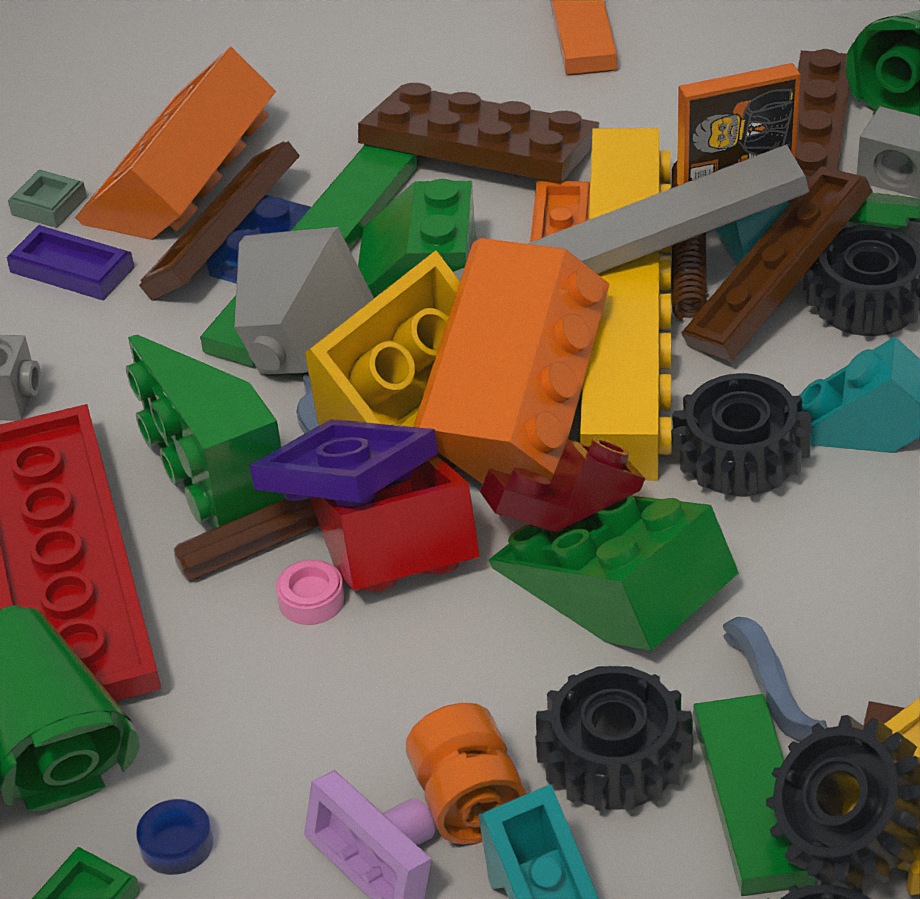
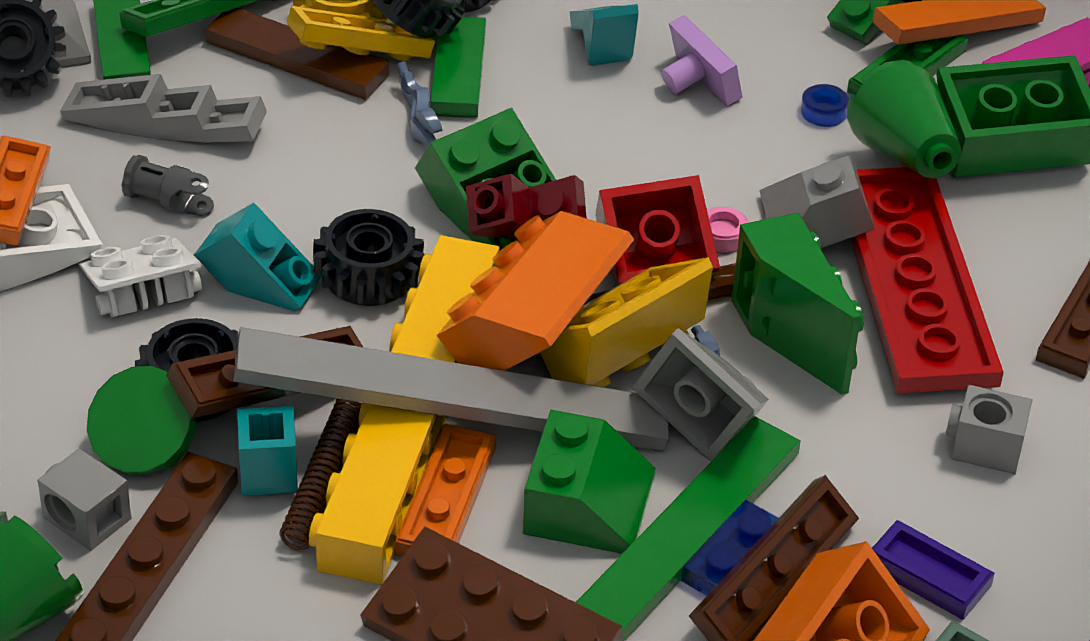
camera: 175 degrees left, 0 degrees up
(180, 599) = (825, 198): none -> light grey slope
(344, 461) = (687, 217): dark purple plate -> none
(462, 768) = (637, 78): orange wheel -> none
(614, 737) = (539, 86): black gear -> none
(735, 119) = (276, 379): tile -> none

